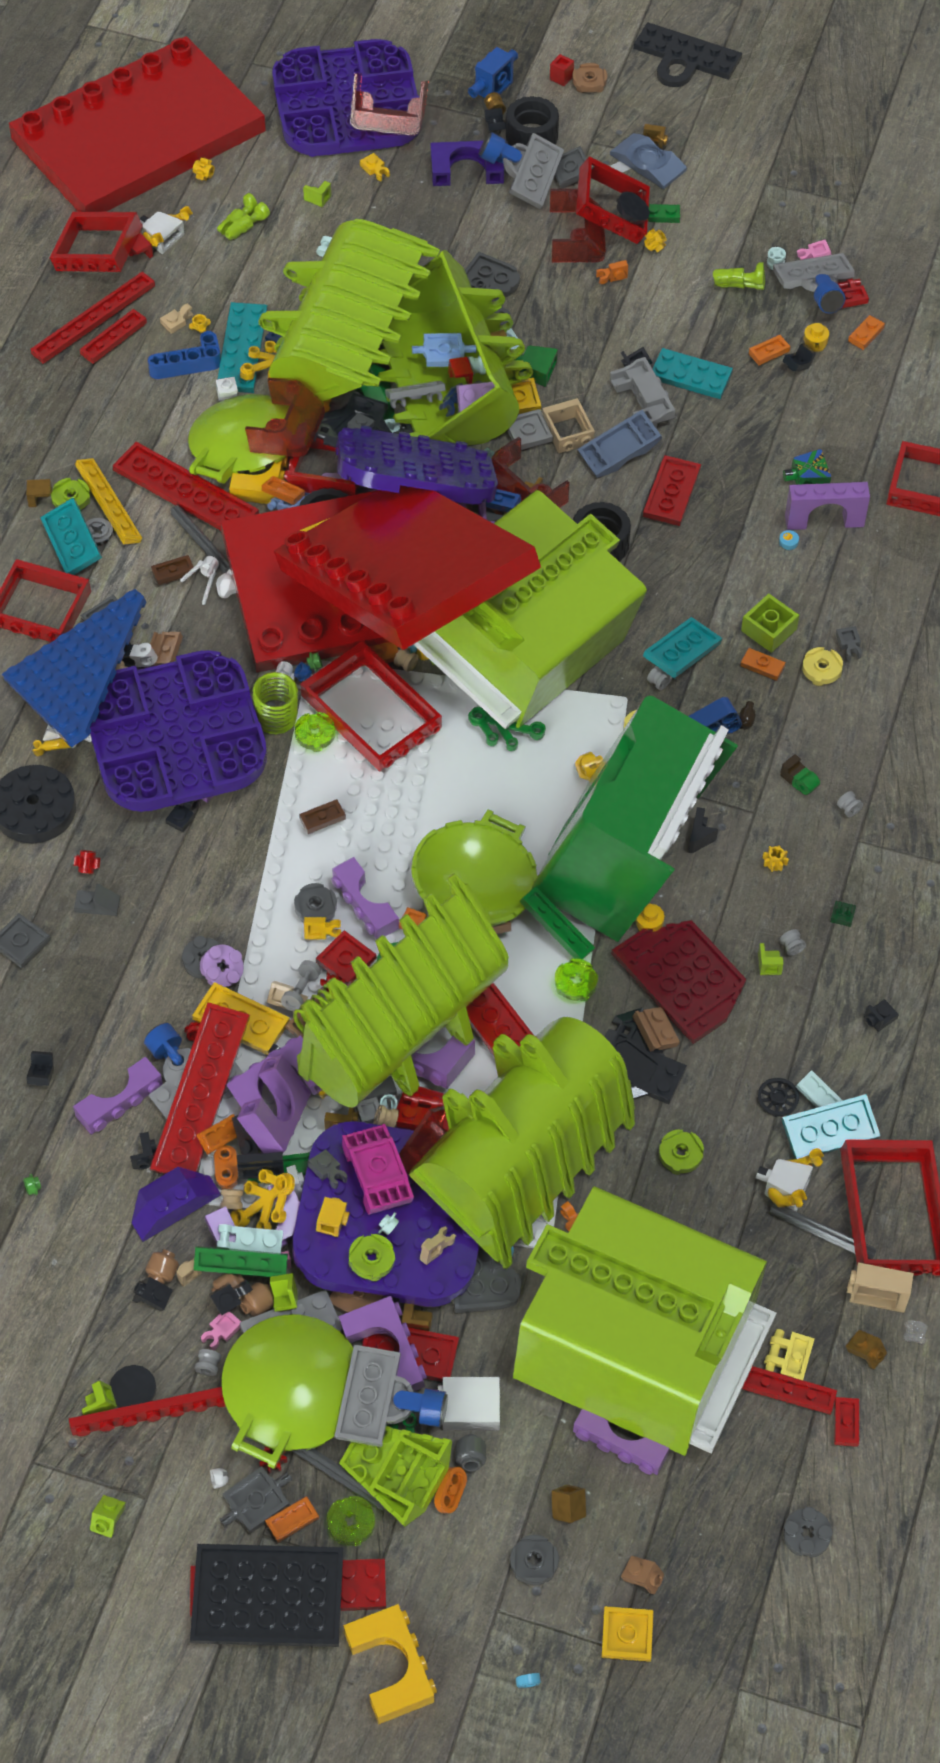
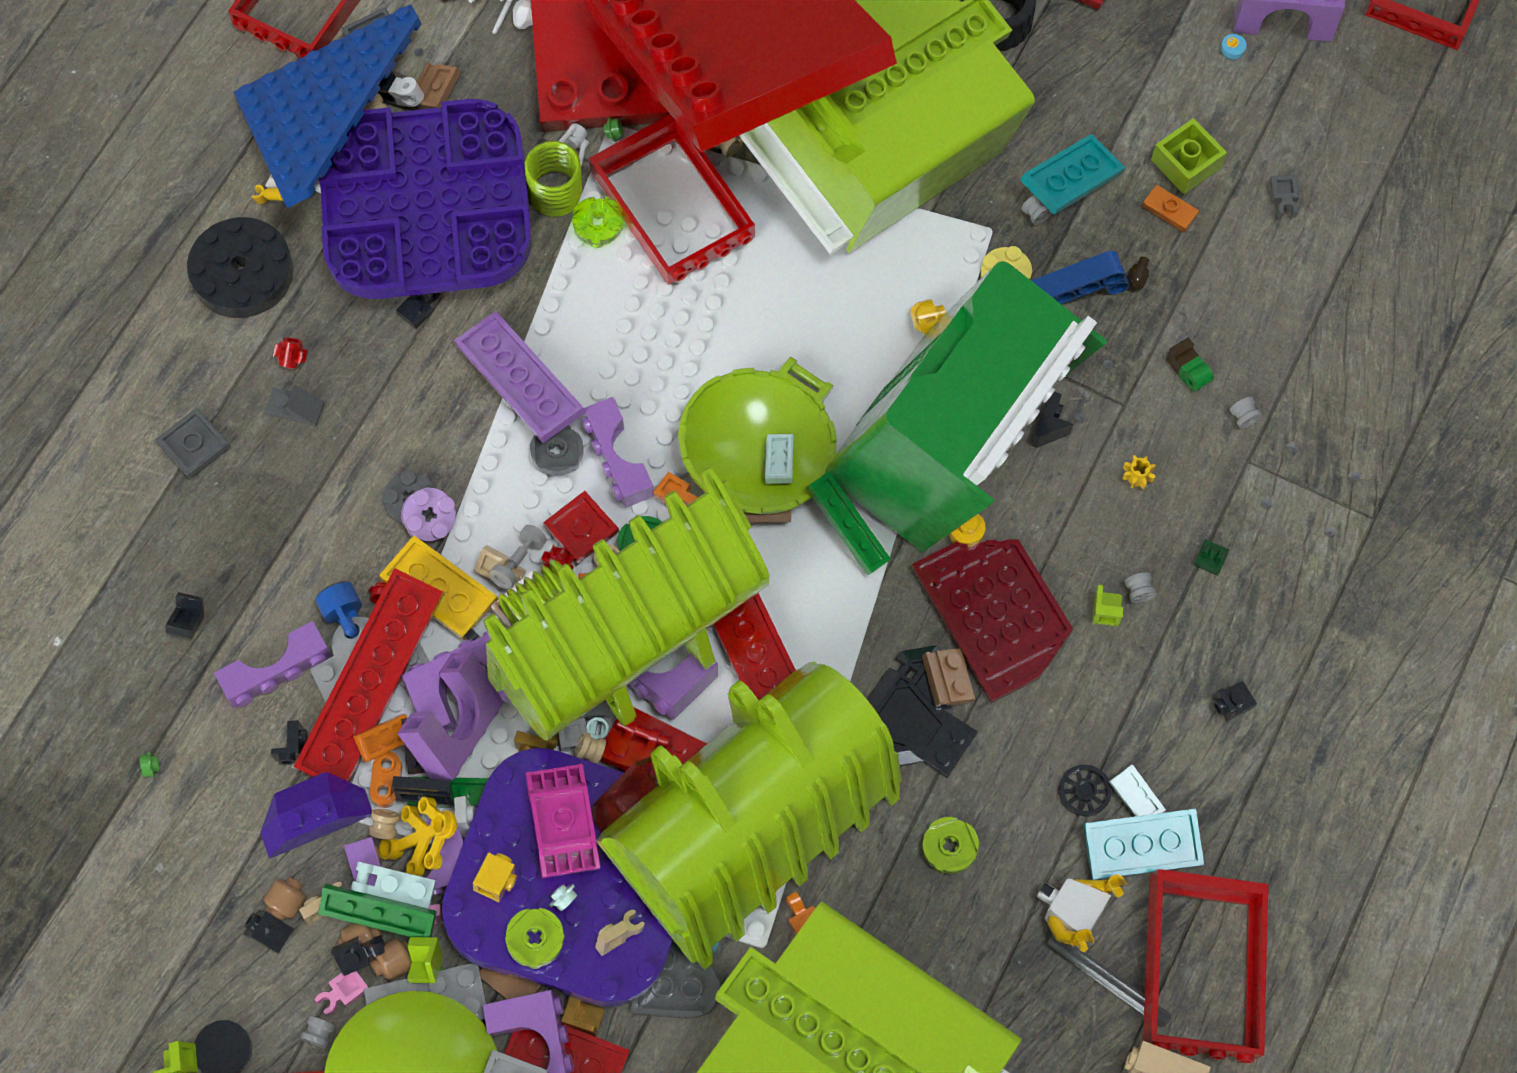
camera: 10 degrees right, 10 degrees up
(275, 853) = (519, 377): none -> medium lavender plate
(302, 671) = (597, 140): blue plate -> none
(318, 928) = (554, 483): yellow plate -> none
(322, 816) = (586, 335): reddish brown plate -> none
(326, 1166) = (501, 807): dark grey plate -> none
(485, 719) = (857, 254): green plant -> none
(494, 885) = (779, 458): none -> light aqua plate
(576, 991) = (854, 584): clear neon green plate -> none
(822, 675) = (1240, 234): light yellow plate -> none

